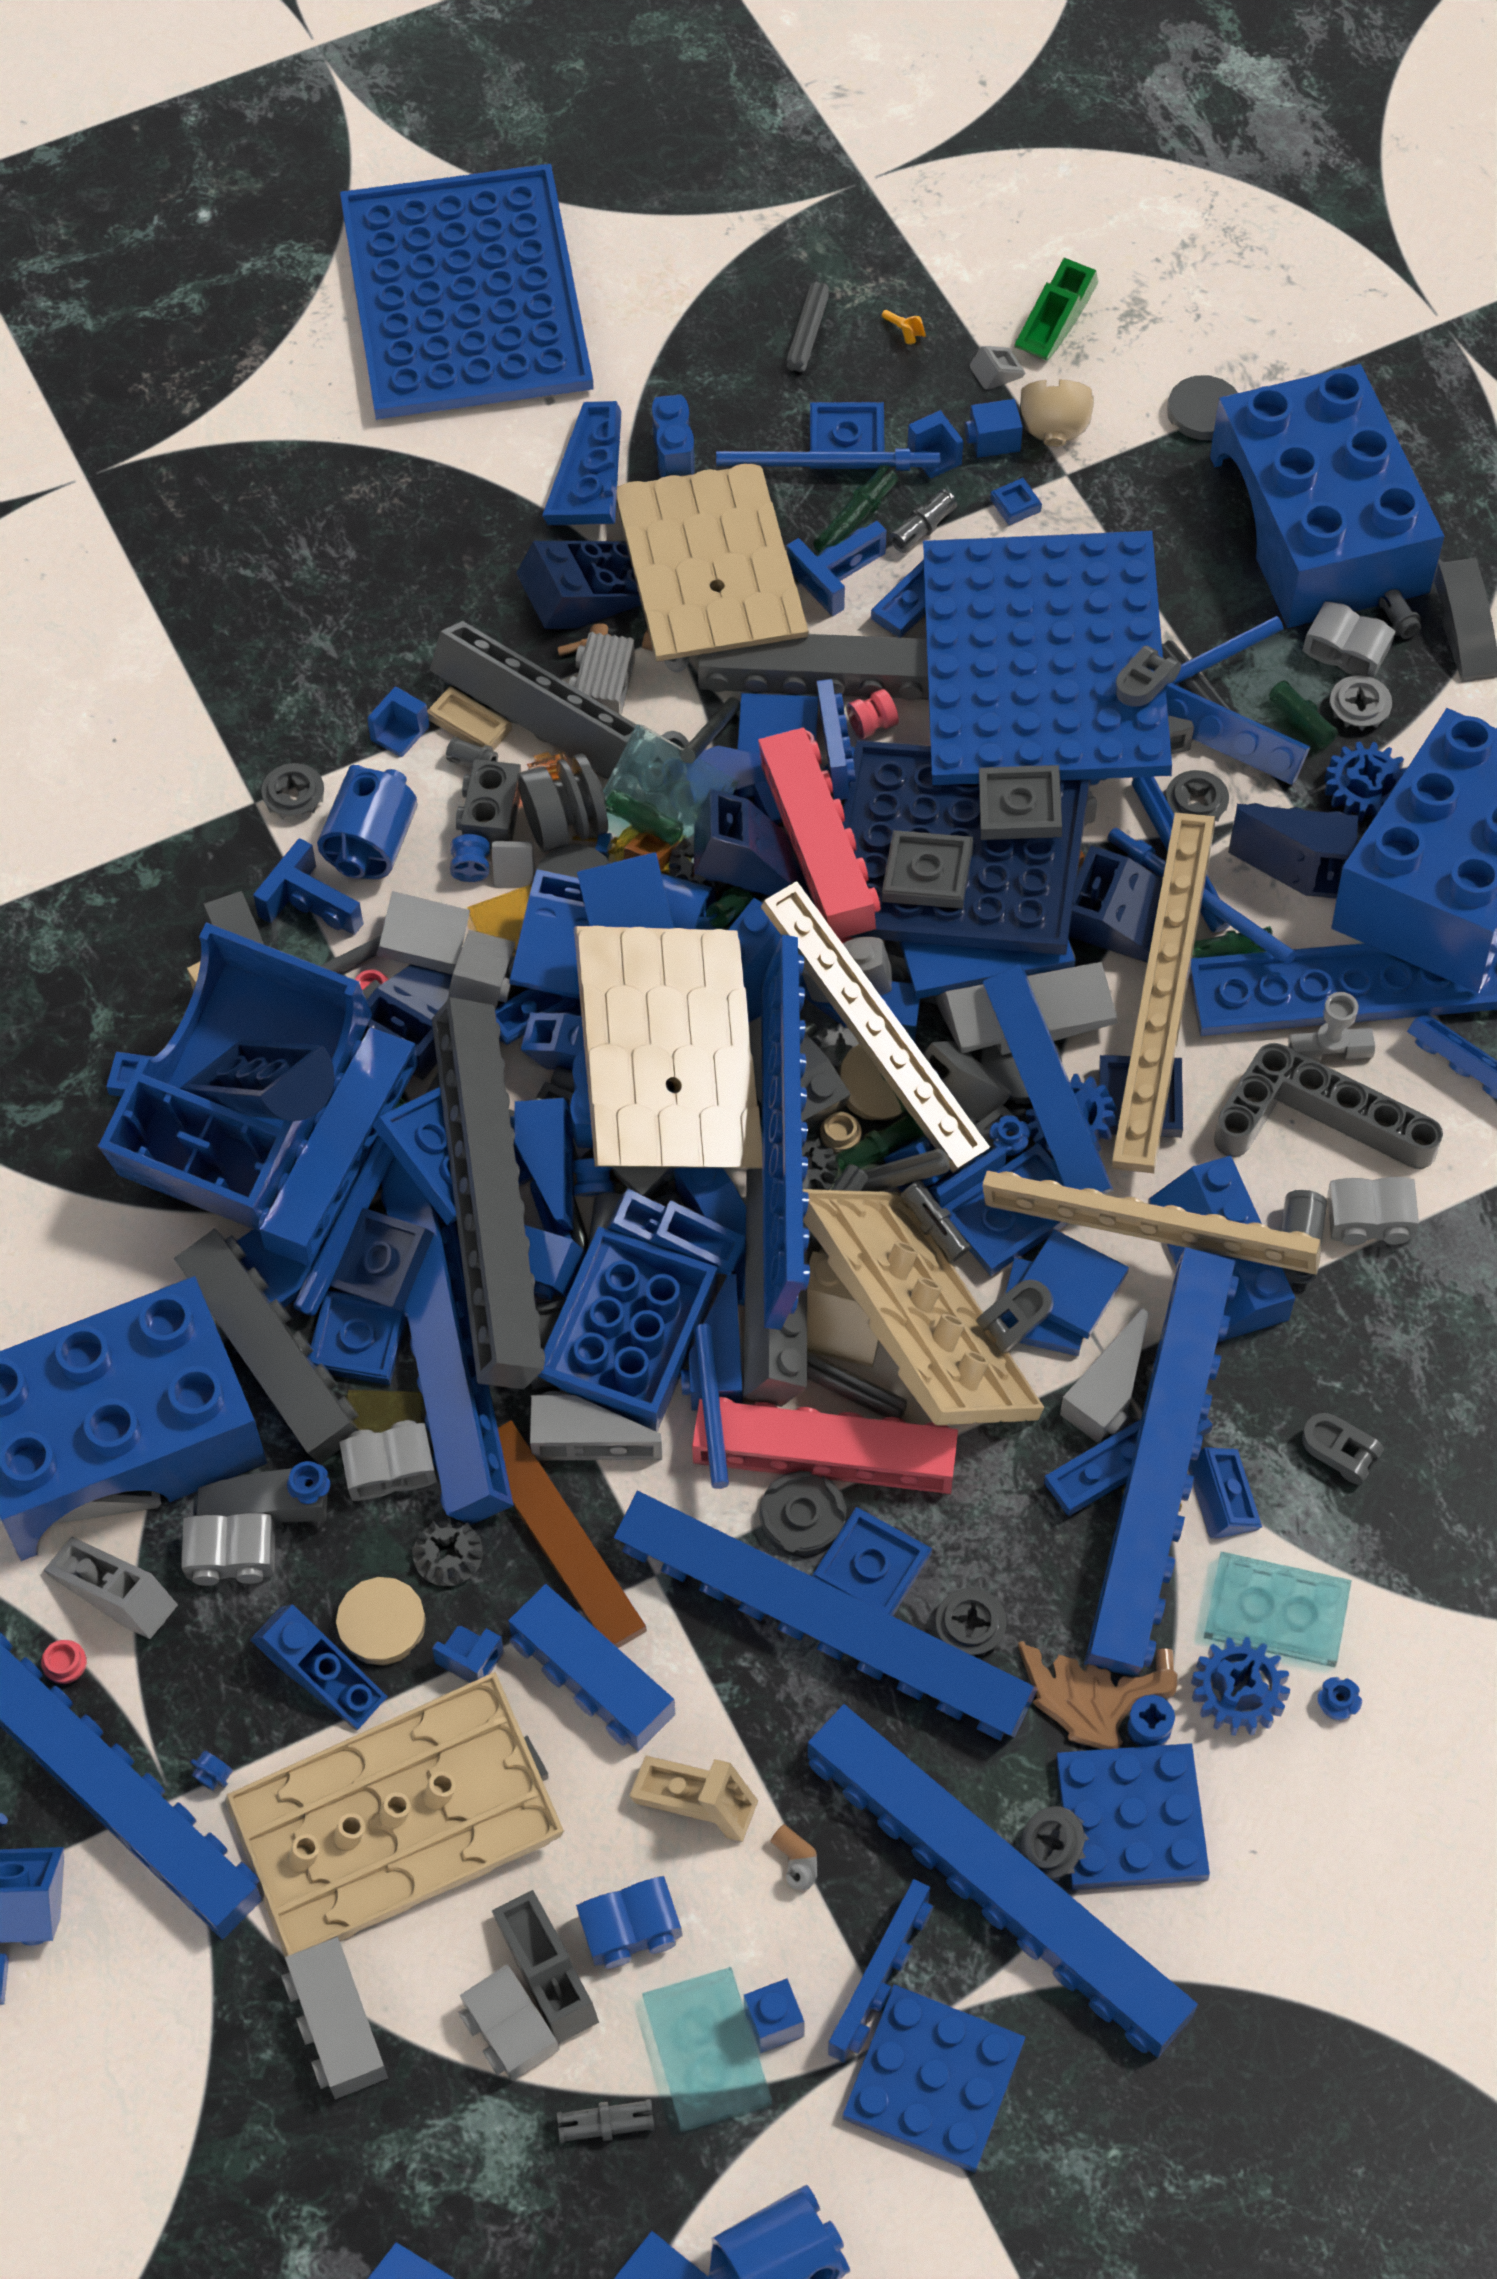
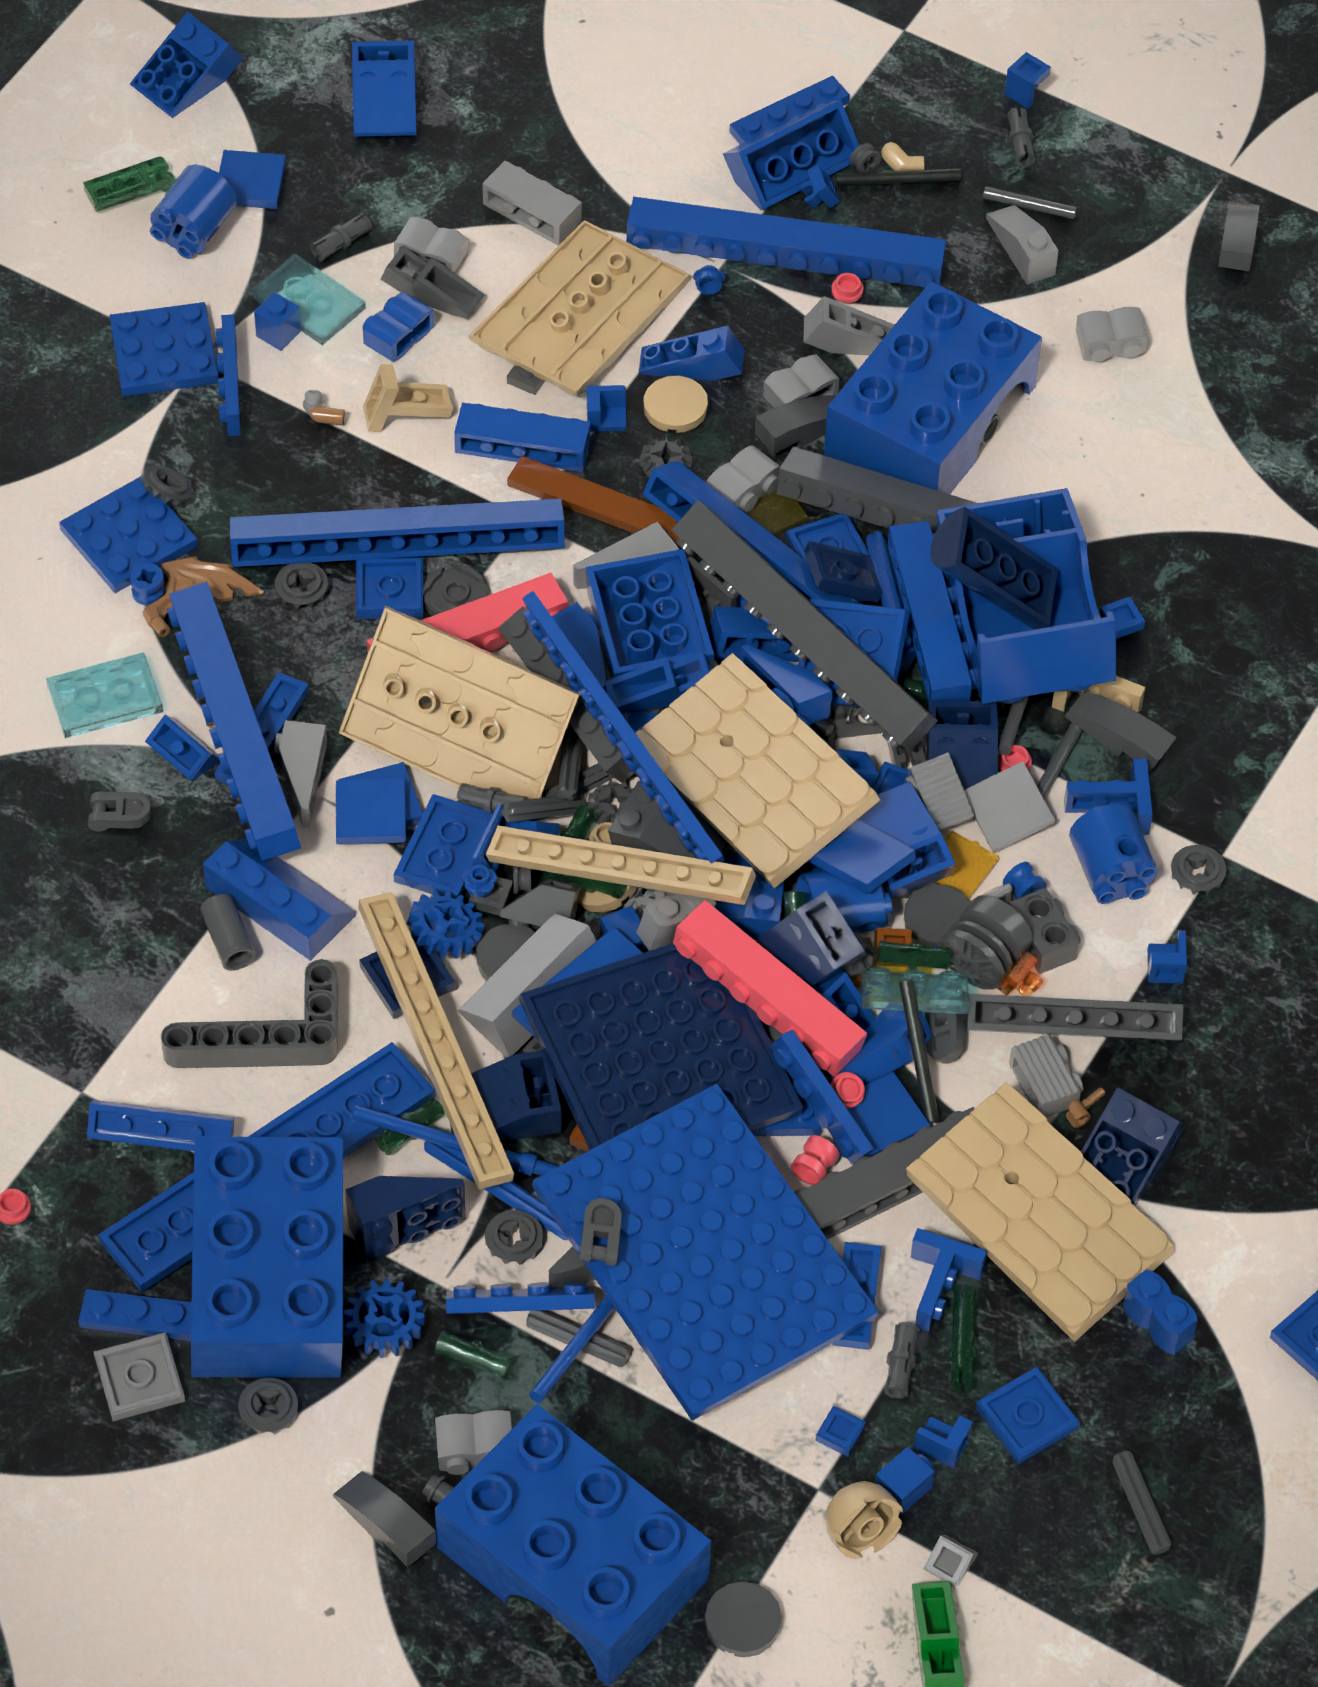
camera: 145 degrees right, 5 degrees down
(306, 1472) = (773, 416): blue plate -> none
(465, 752) = (1091, 964): dark grey pin -> none
(468, 719) = (1120, 990): tan tile -> none
(589, 470) = (1204, 1244): blue wing -> none
(711, 1406) = (555, 595): blue bar -> none
(901, 459) = (961, 1400): blue bar -> none
(910, 326) = (1057, 1549): light orange hand -> none
(927, 869) = (666, 1006): dark grey tile -> none
(1001, 1882) = (191, 452): blue brick -> none
(1020, 802) = (631, 1089): dark grey plate -> none
(1030, 1304) = (392, 761): dark grey plate -> none
(1046, 1081) = (472, 908): blue tile -> none
(1152, 1222) = (332, 847): tan plate -> none
(1253, 1696) = (101, 629): blue gear -> none
(1334, 1036) = (287, 1081): light grey bar -> none
(1339, 1709) = (35, 667): blue plate -> none
(1373, 1210) = (186, 978): light grey brick -> none
(1374, 696) = (438, 1381): light grey gear -> none

